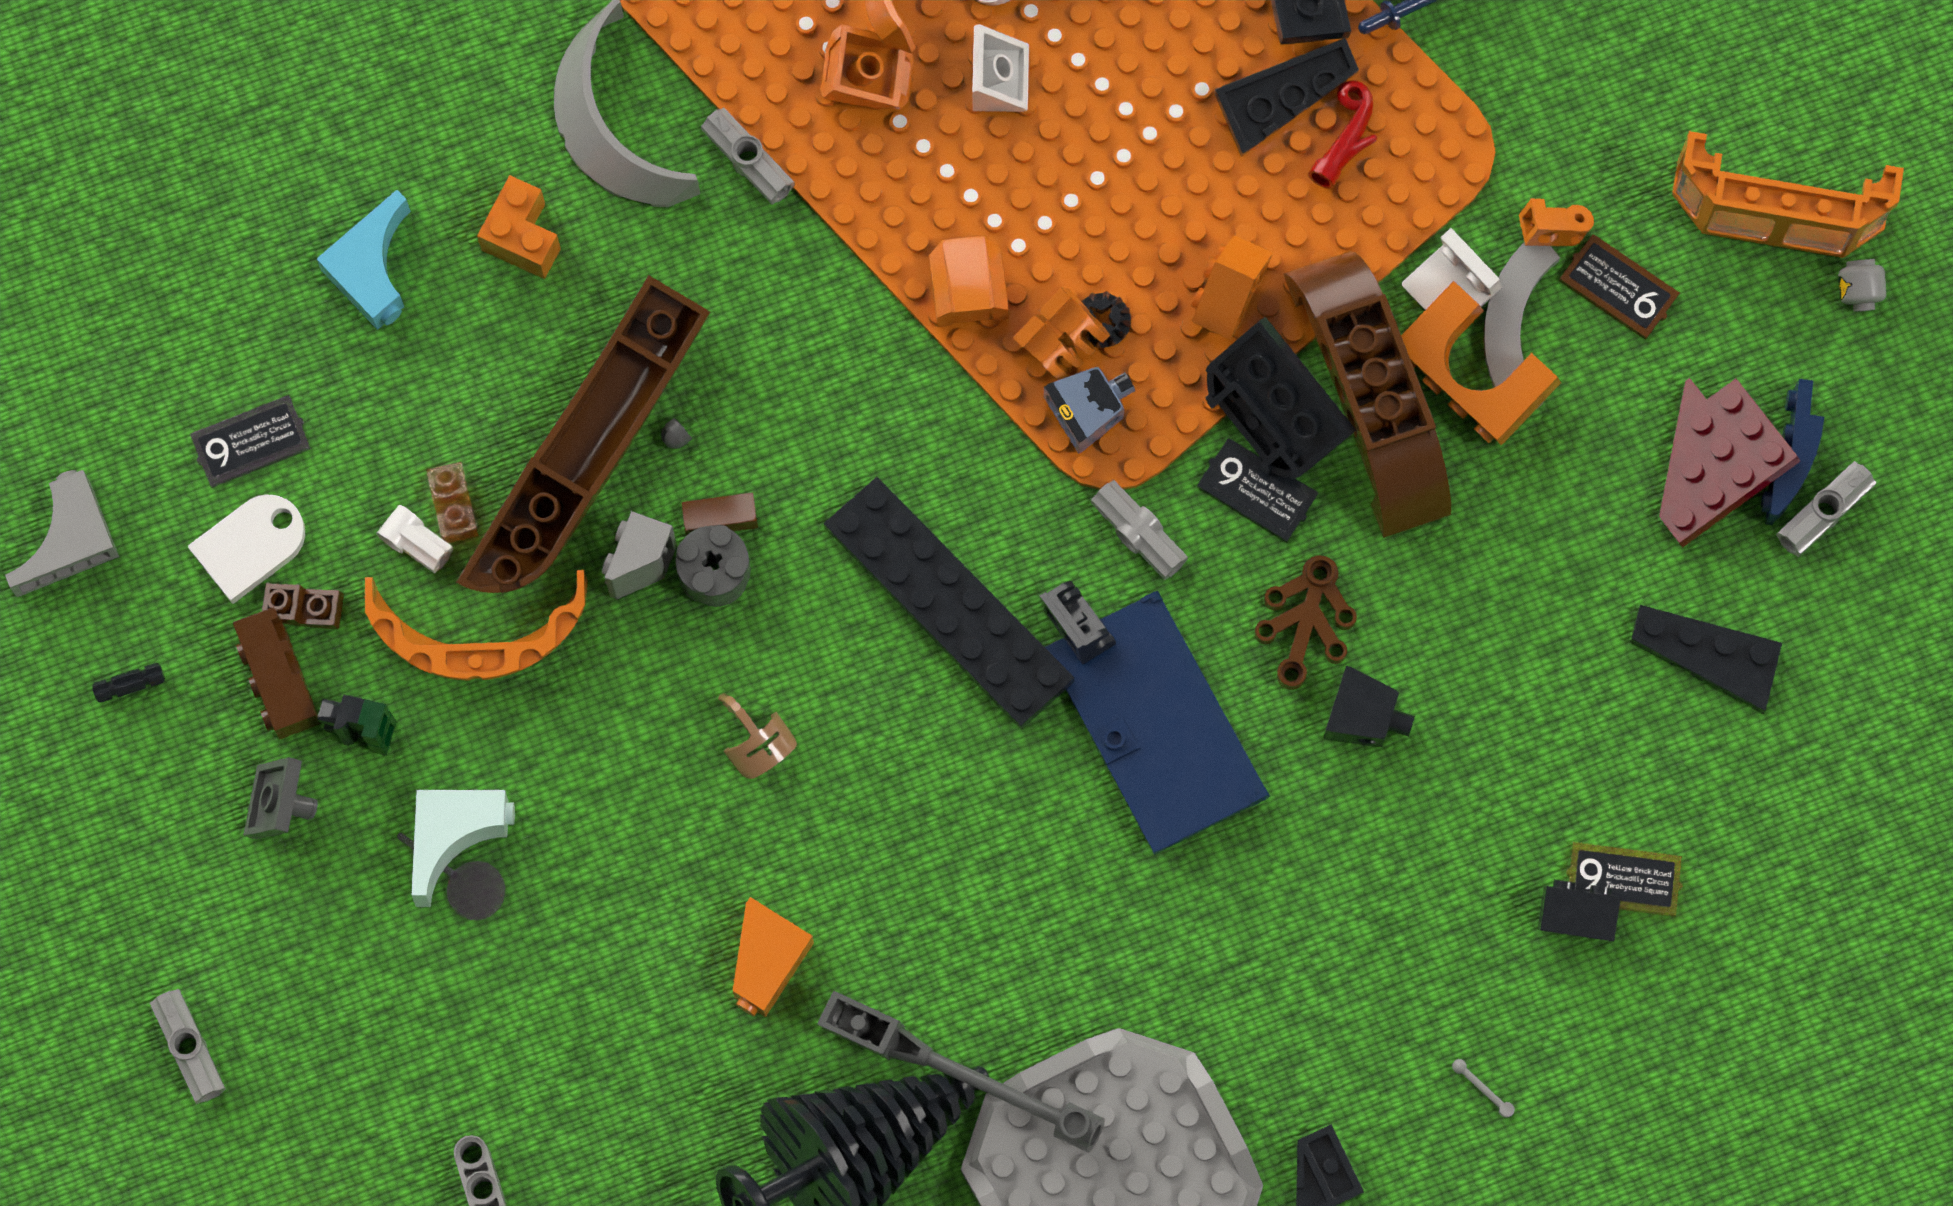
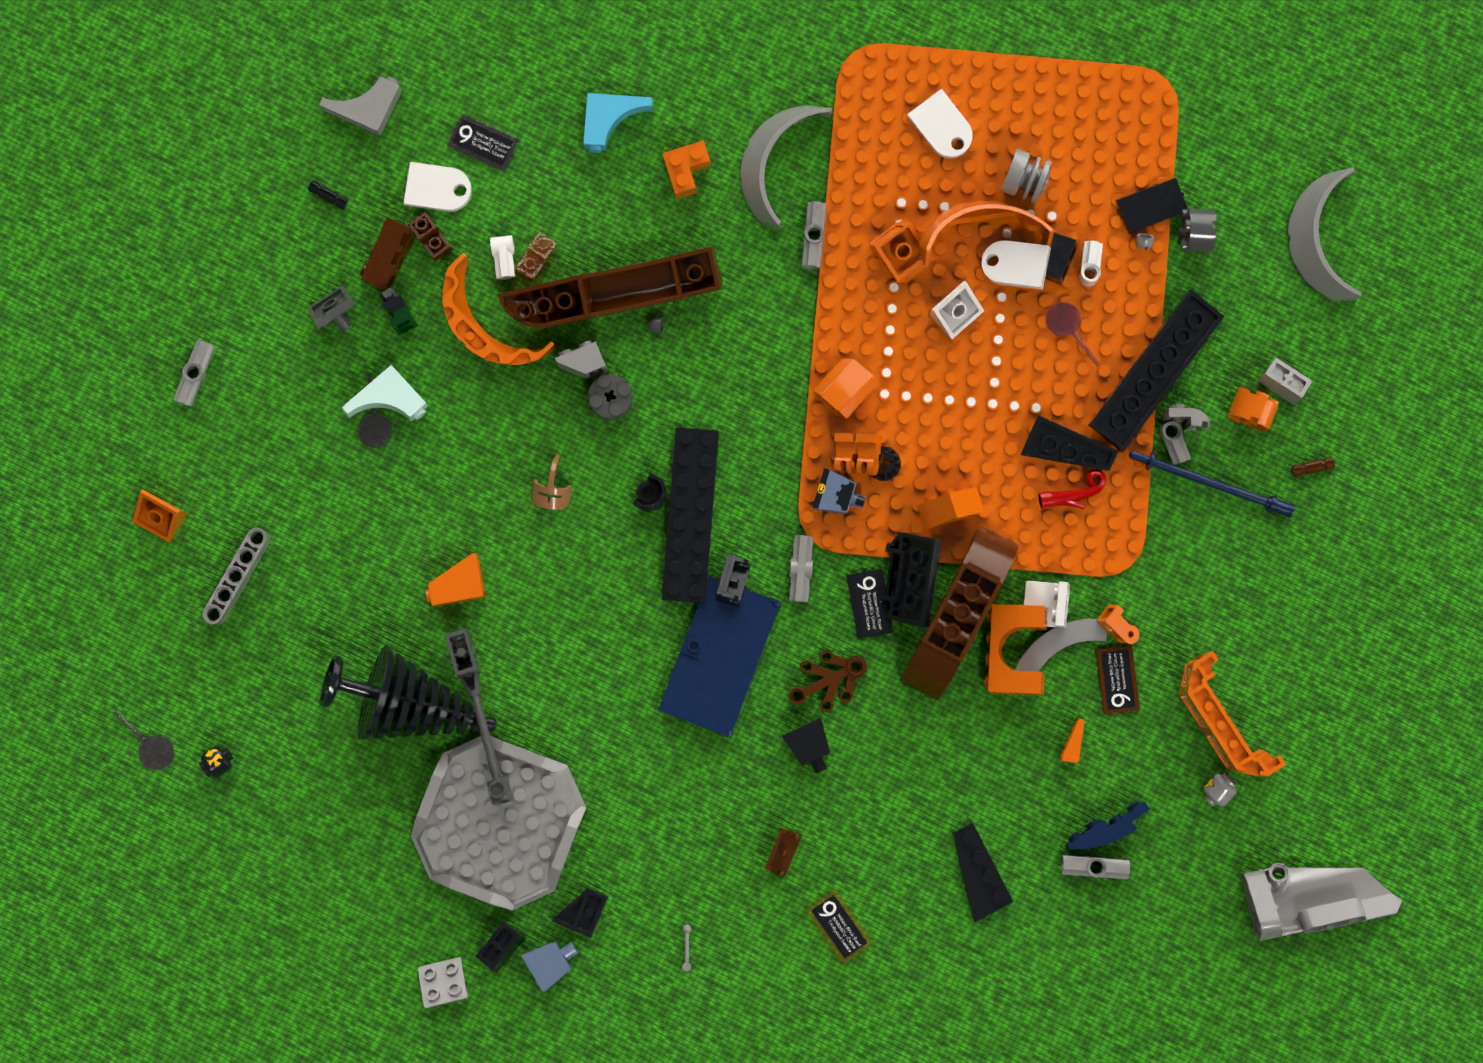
camera: 50 degrees right, 10 degrees up
(733, 511) = (638, 377): reddish brown slope -> none
(878, 623) = (651, 494): none -> black hair
(1468, 862) = (783, 852): none -> reddish brown hinge
(1578, 911) = (803, 920): black piece -> none
(1654, 406) = (1073, 744): none -> orange slope
(1719, 459) = (1074, 798): wing -> none

